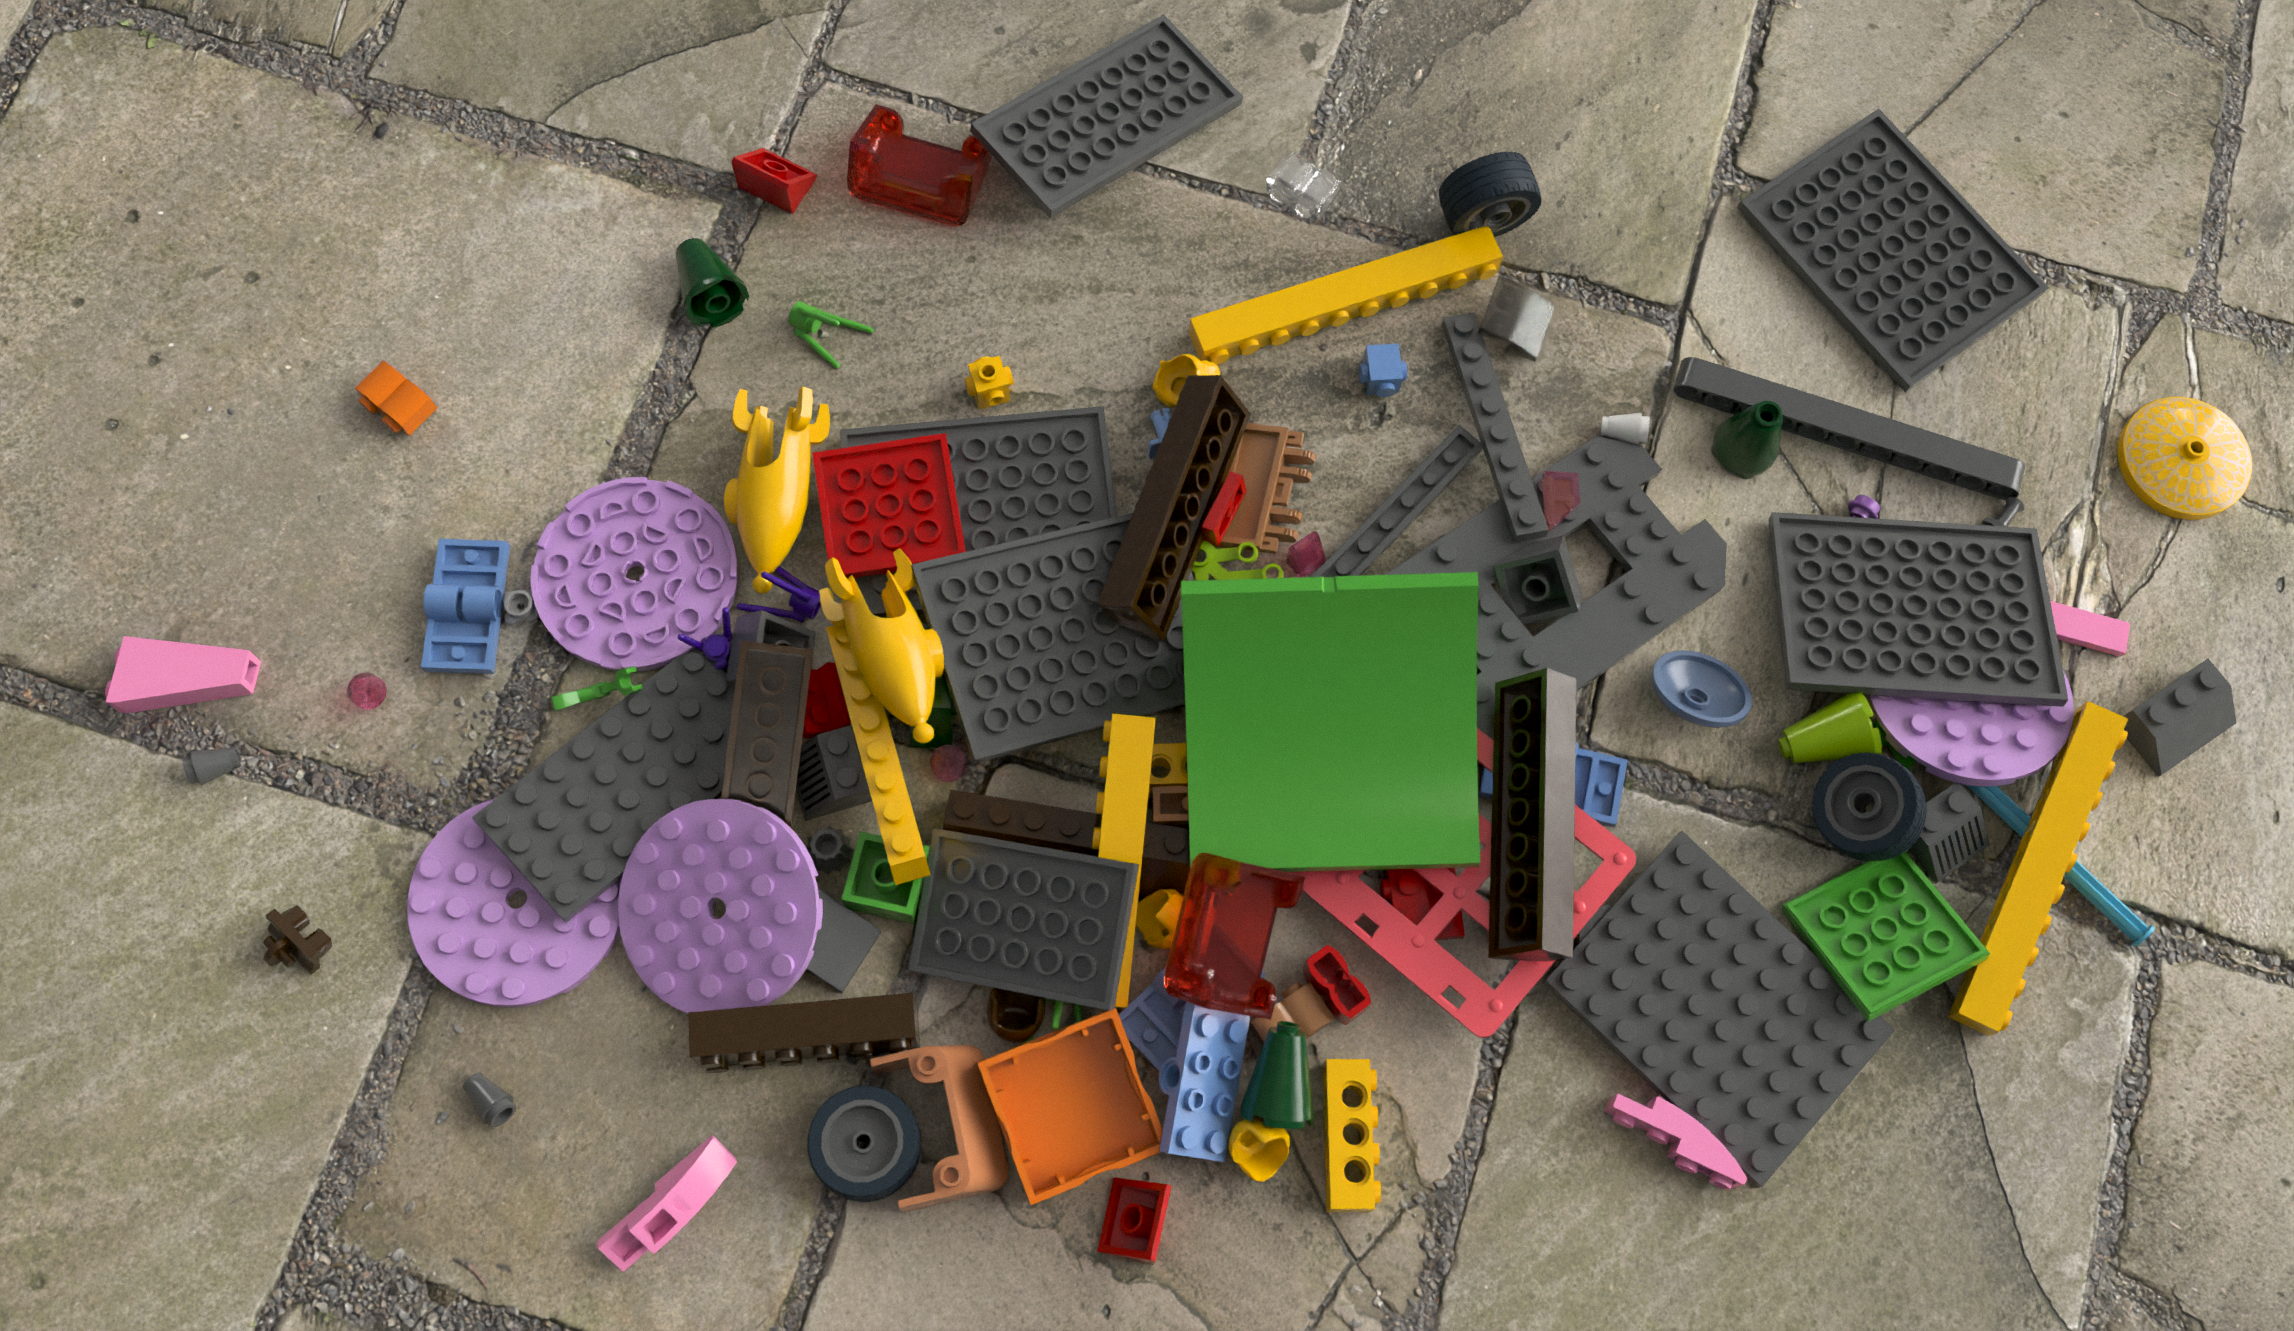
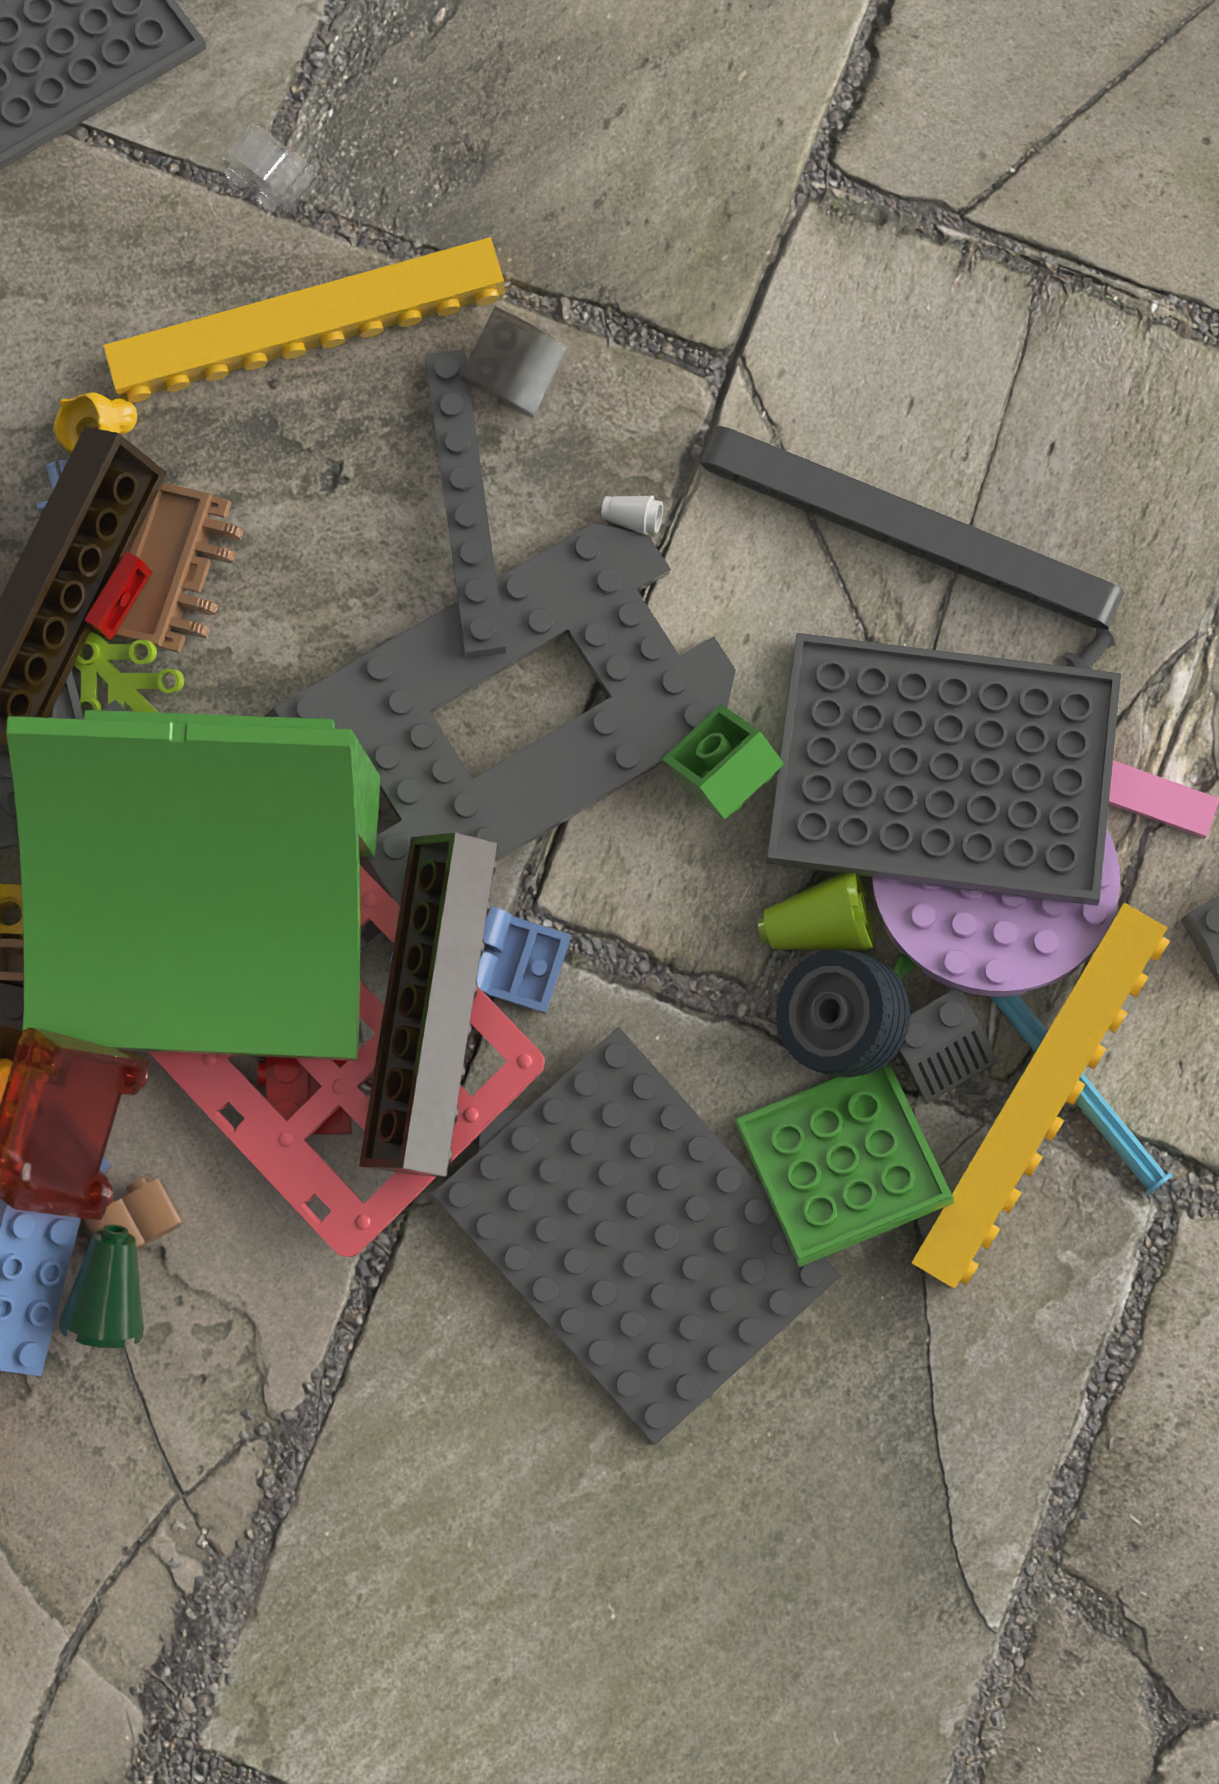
camera: 10 degrees right, 10 degrees up
(1258, 1148) = (77, 1367): yellow hair -> none
(1306, 555) = (218, 656): clear pink slope -> none
(1340, 1192) = (168, 1419): yellow brick -> none
(1342, 992) = (193, 1193): red brick -> none
(1382, 370) = (339, 422): medium blue brick -> none
(1403, 506) = (327, 614): dark grey plate -> none
(1490, 193) = (494, 200): black wheel -> none
(1539, 581) = (491, 709): dark grey slope -> none
(1559, 496) = (529, 603): clear pink tile -> none
(1691, 1143) = (580, 1392): bright pink slope -> none
(1701, 689) = (670, 839): sand blue dish -> none
(1735, 611) = (723, 761): none -> bright green brick
(1749, 440) = (781, 552): dark green cone -> none
(1863, 507) = (913, 634): medium lavender plate -> none
(1892, 249) = (1010, 288): dark grey plate -> none

